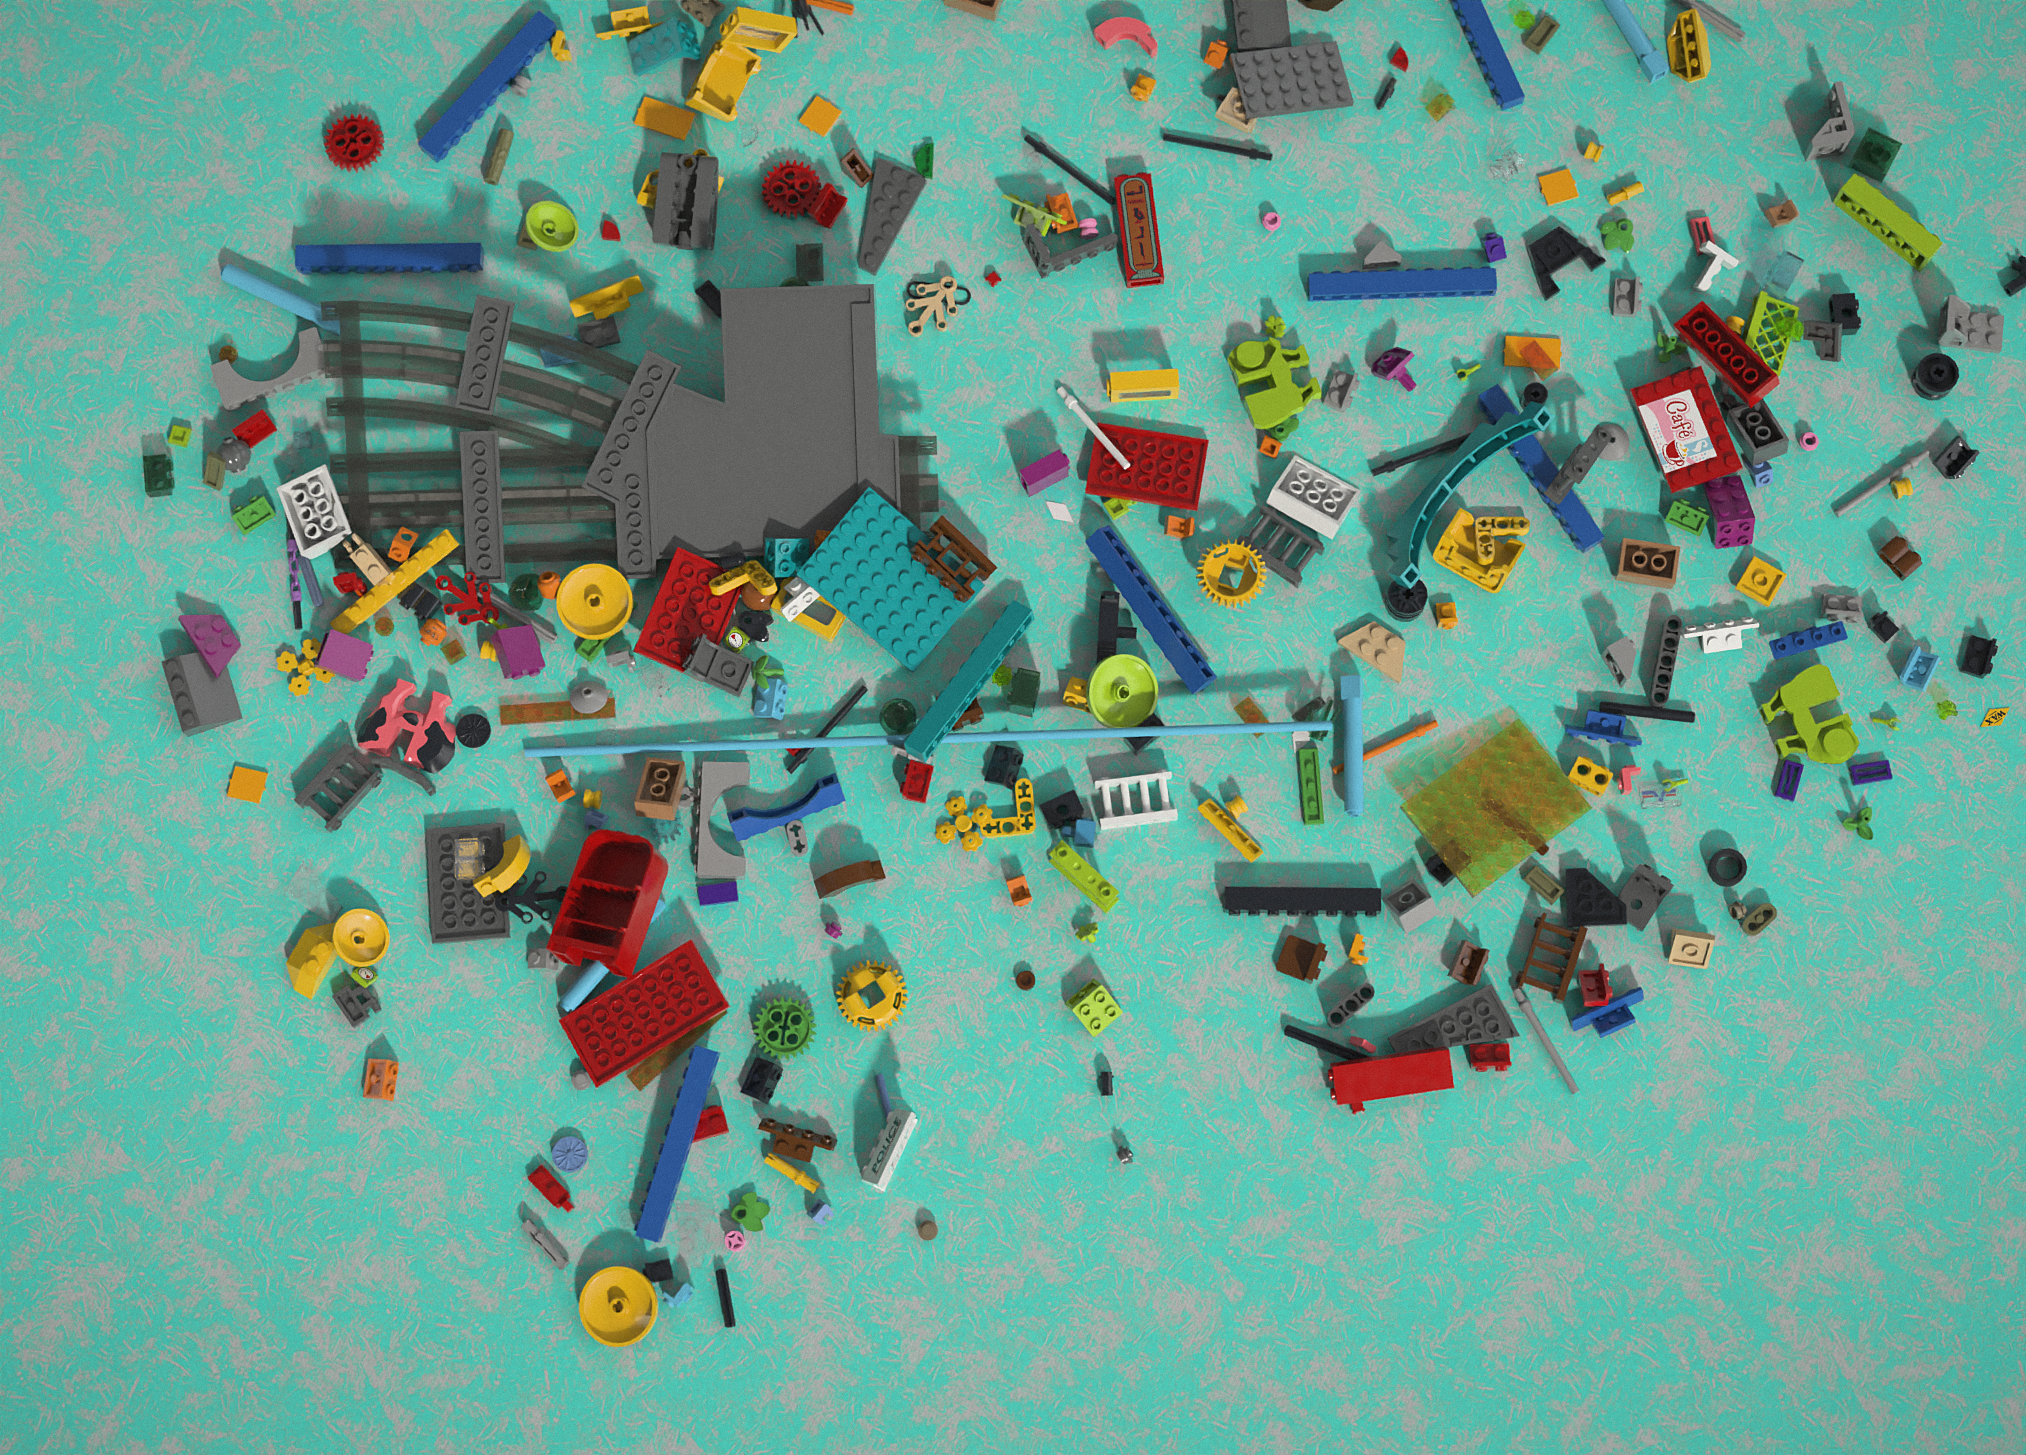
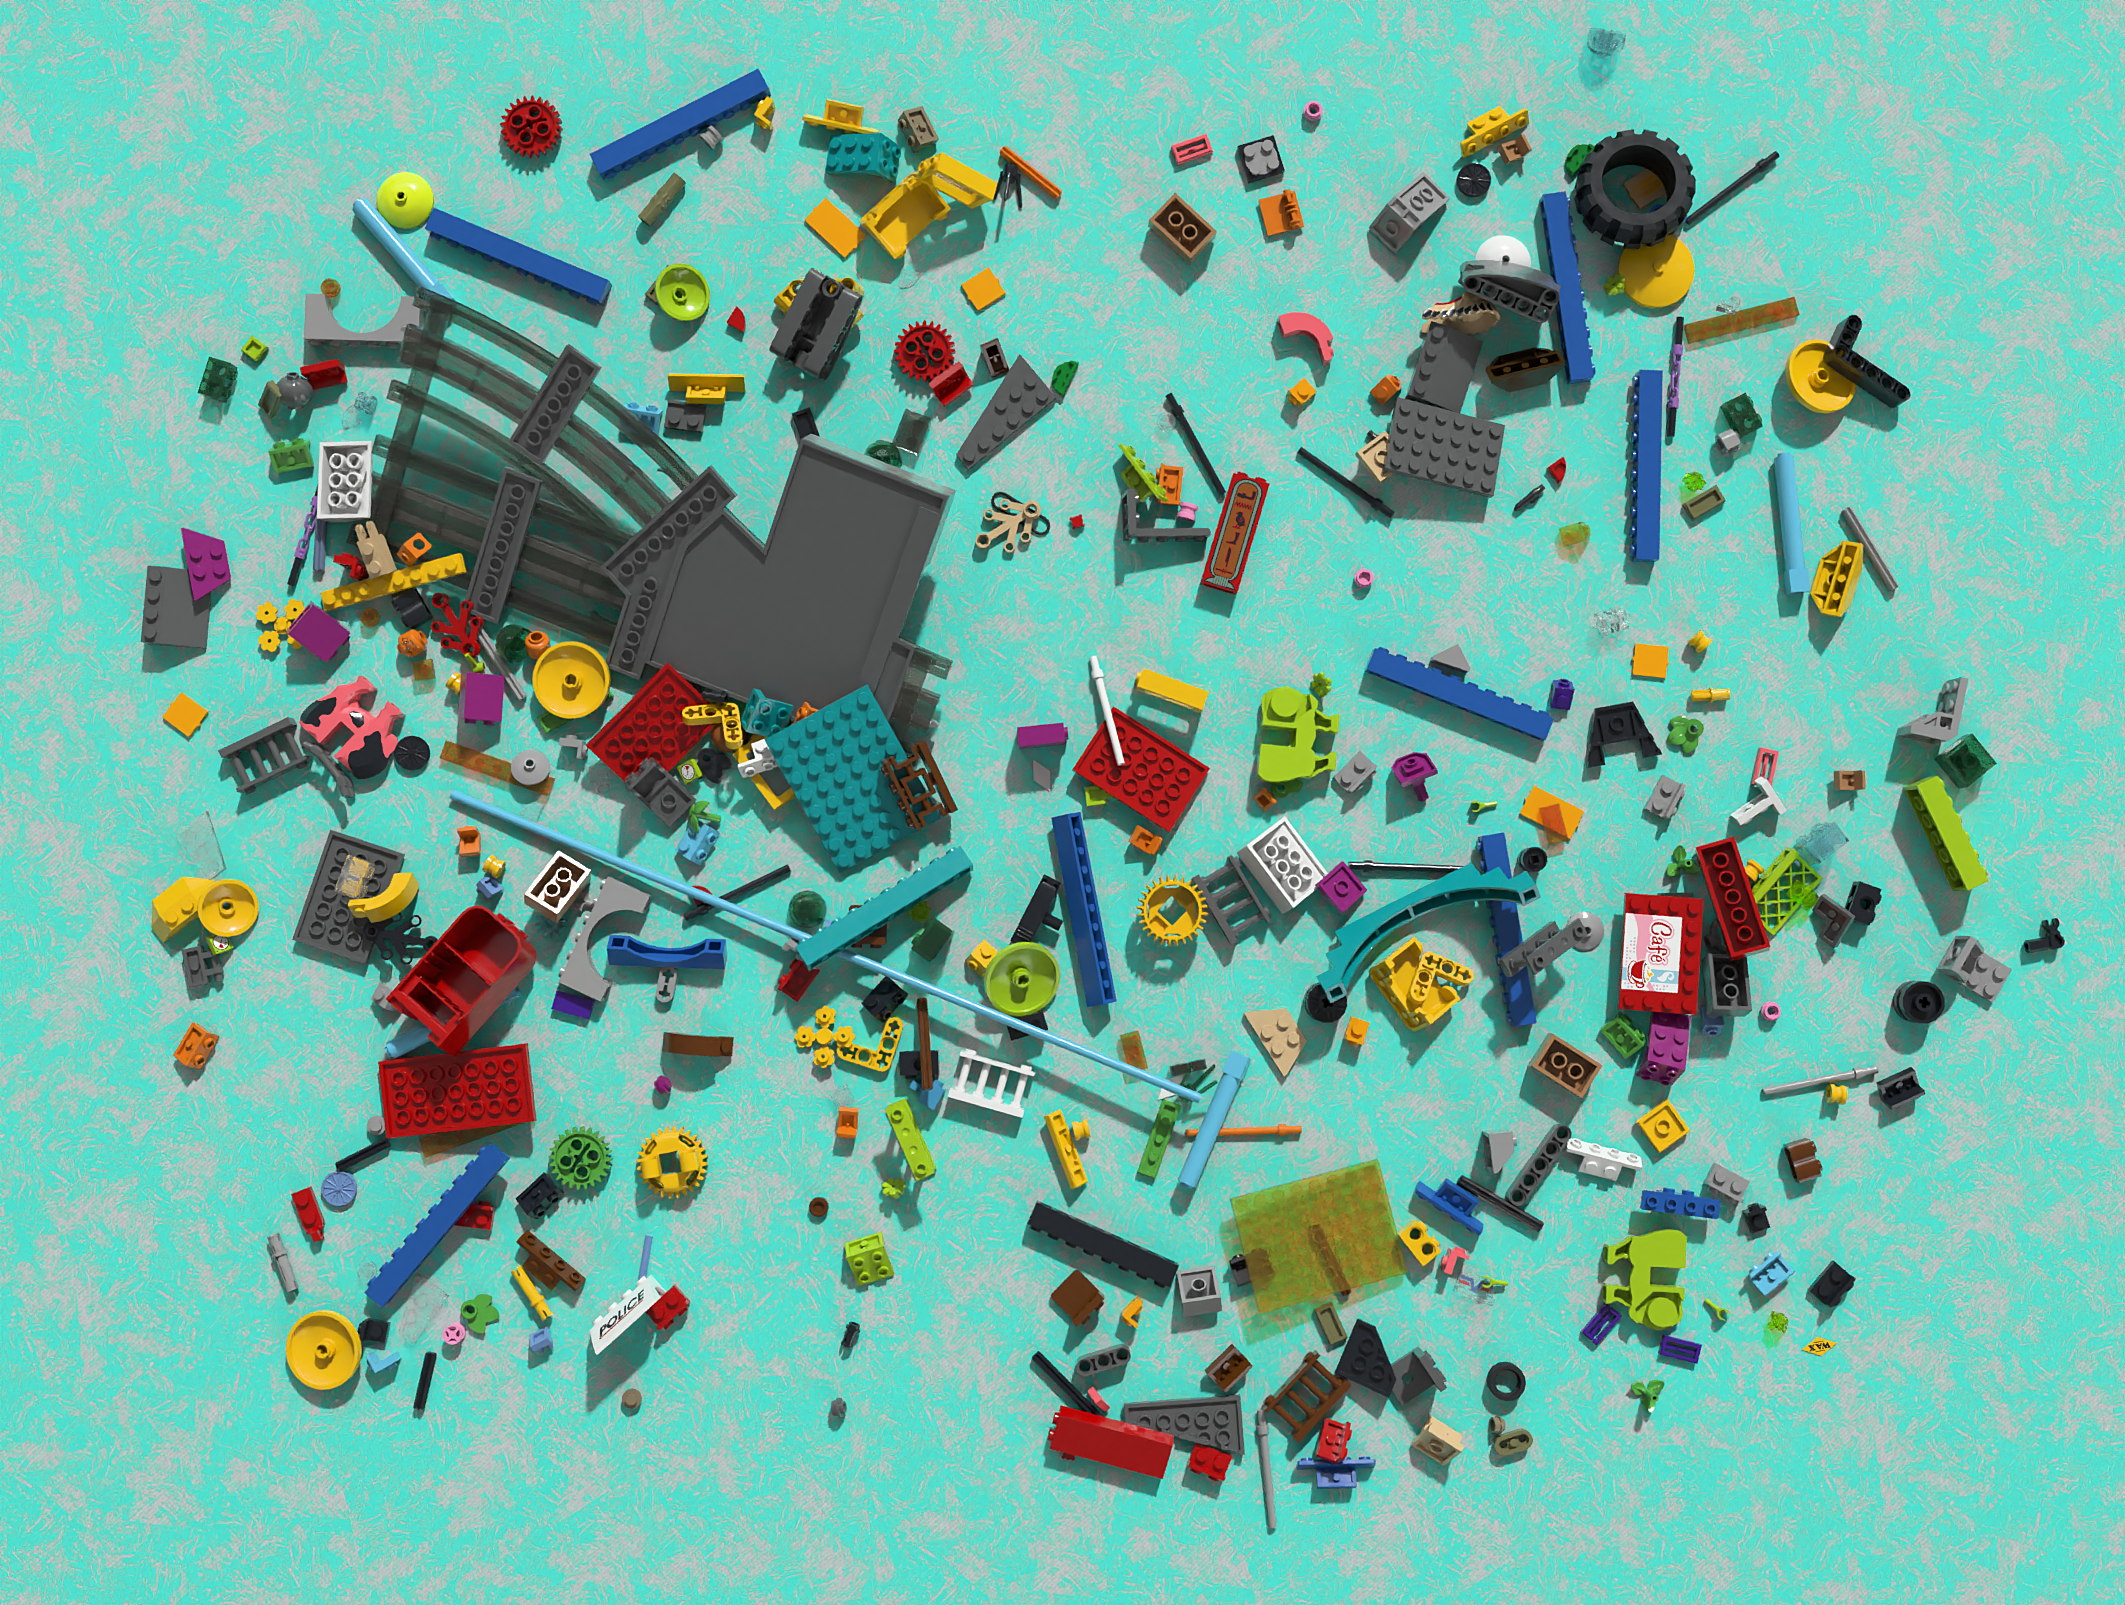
camera: 15 degrees right, 10 degrees up
(272, 259) = (411, 209): none -> neon yellow dish
(579, 1113) = (363, 1154): none -> black axle
(925, 1131) = (667, 1307): none -> red bracket
(1059, 787) = (924, 1041): none -> reddish brown axle
(1374, 493) = (1341, 887): none -> magenta plate

